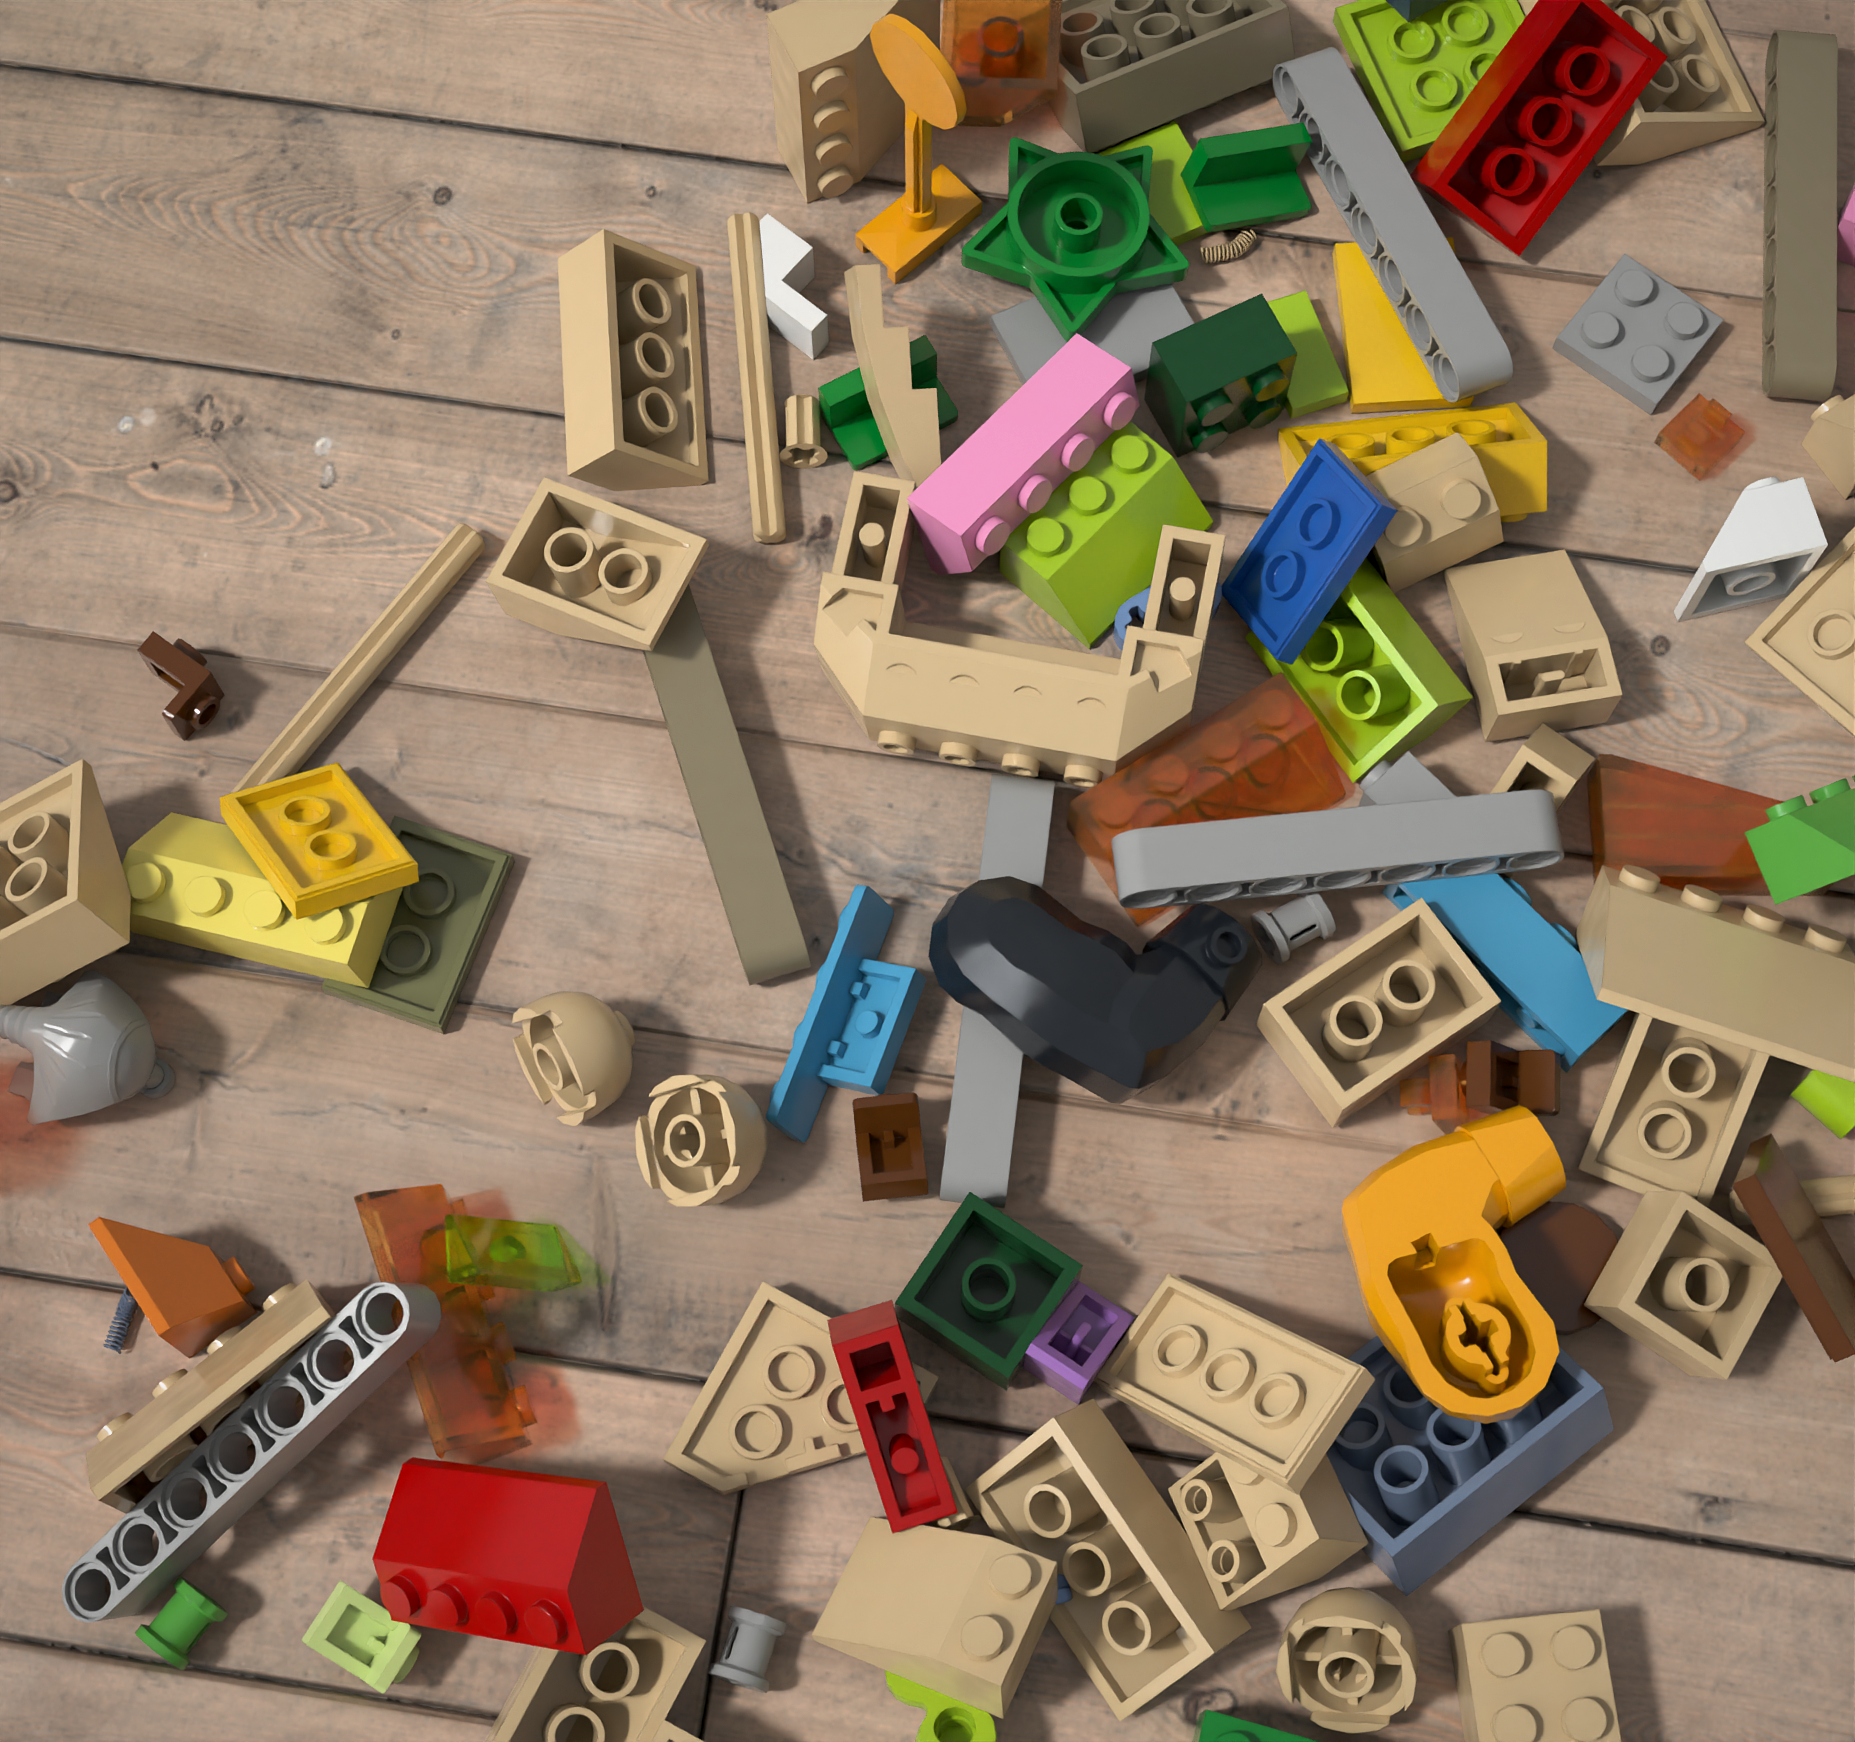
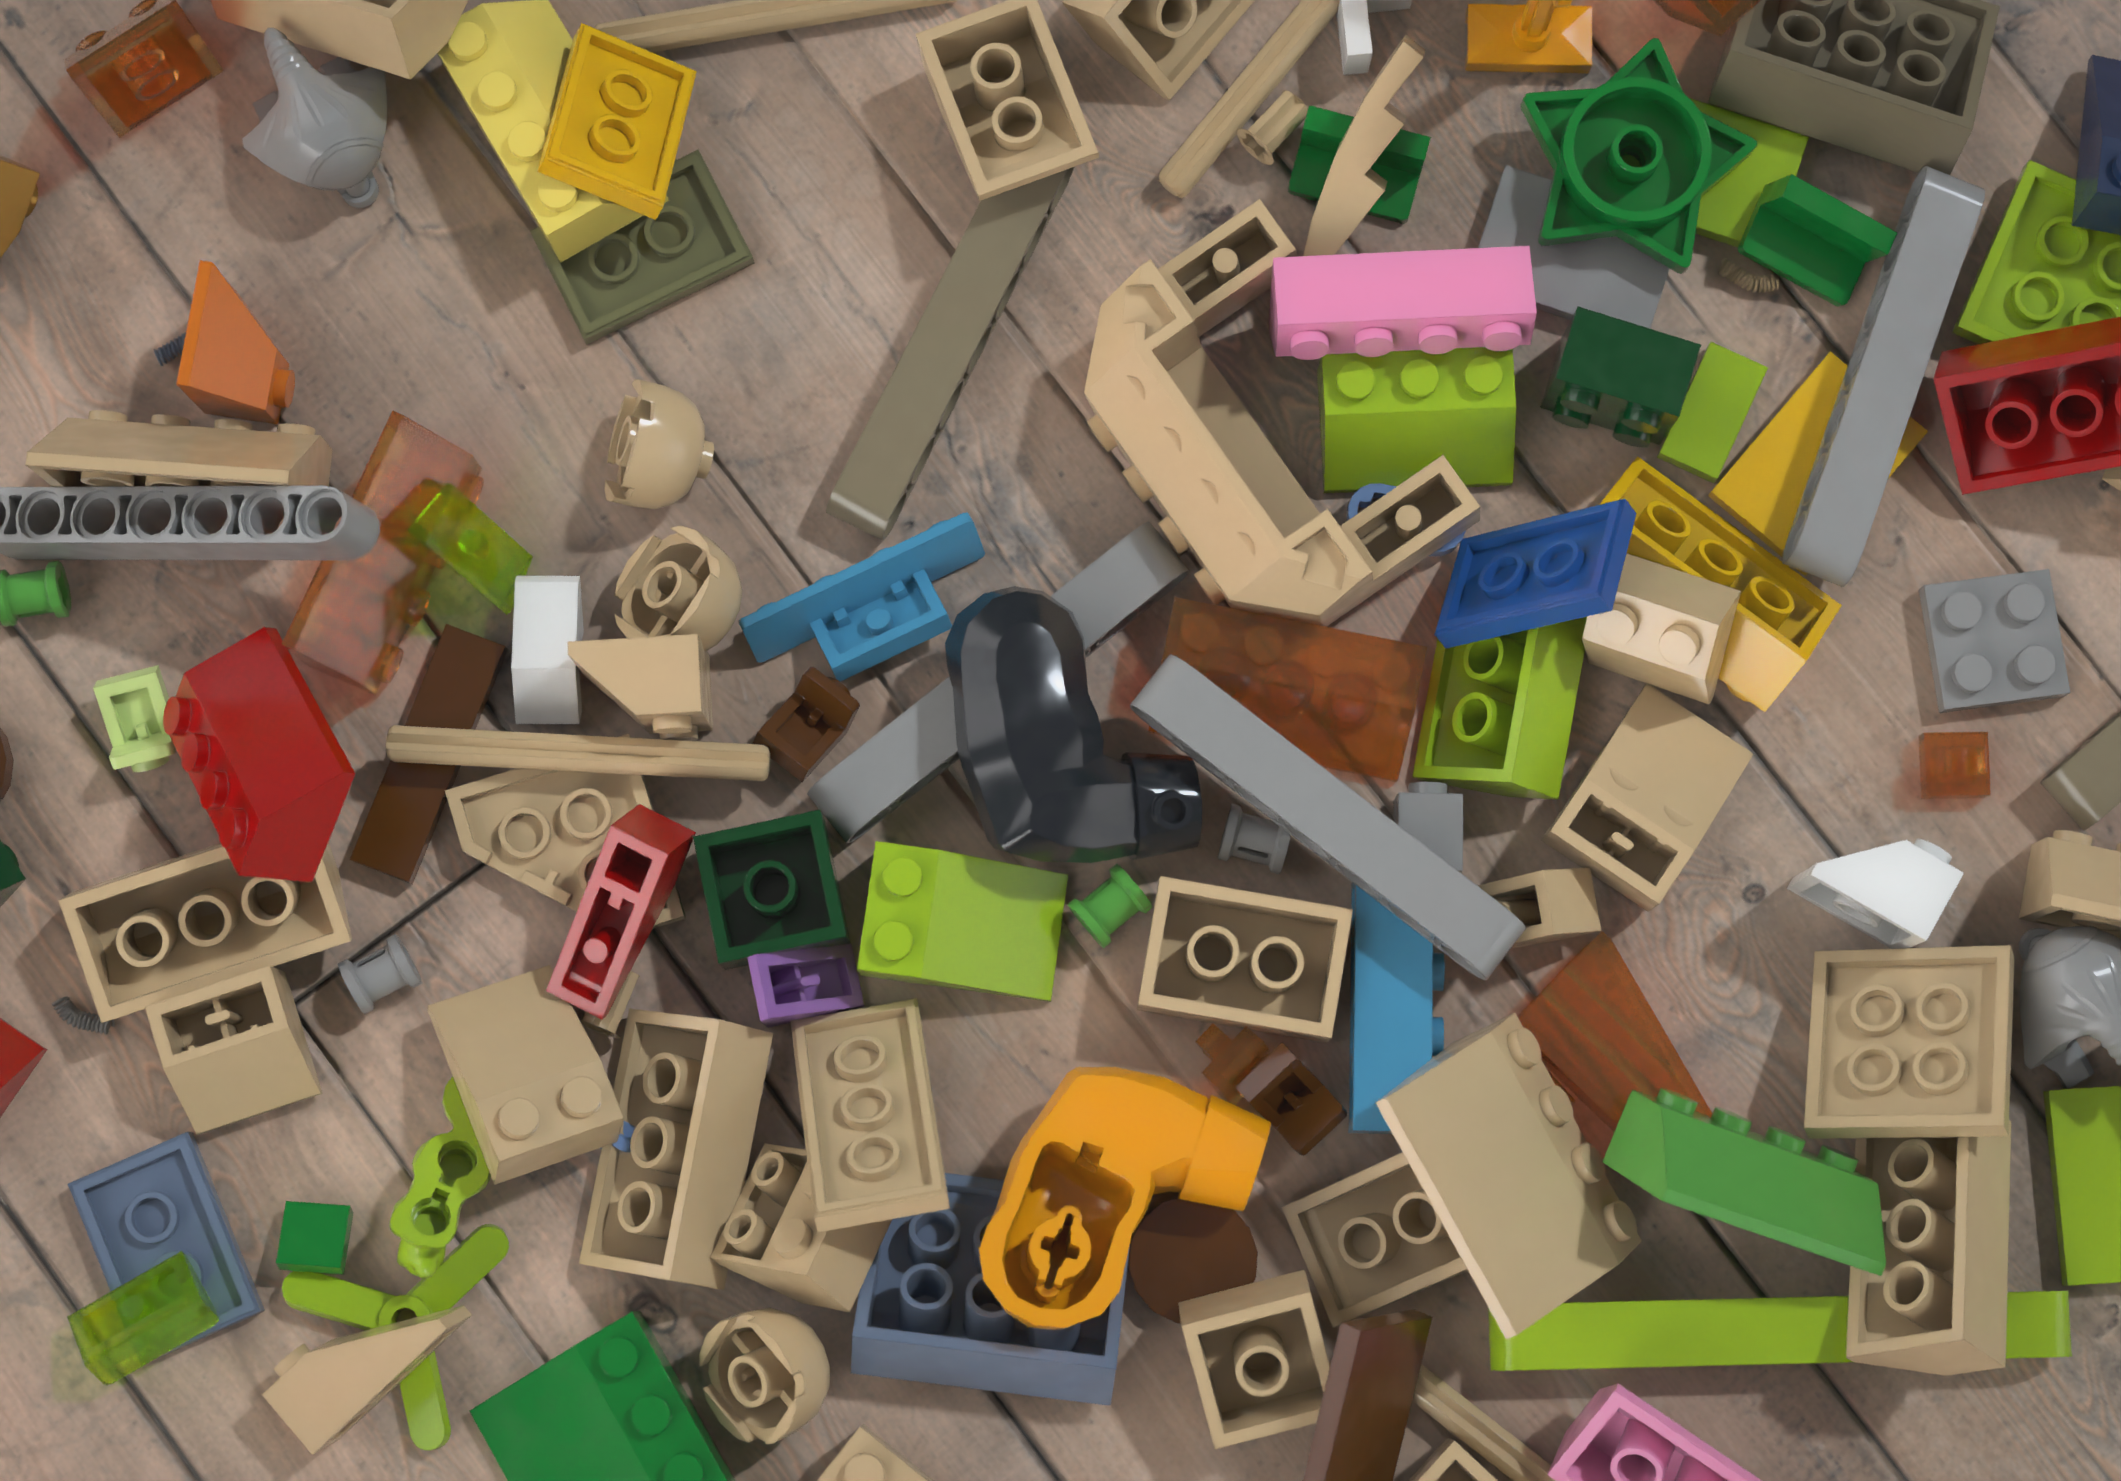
camera: 45 degrees right, 10 degrees up
(621, 1446) = (414, 793): none -> reddish brown tile
(638, 1279) = (542, 672): none -> white slope
(738, 1331) = (578, 753): none -> tan axle
(745, 1223) = (653, 680): none -> tan slope
(1144, 1186) = (962, 922): none -> lime slope
(1240, 1069) = (1110, 905): none -> bright green bush

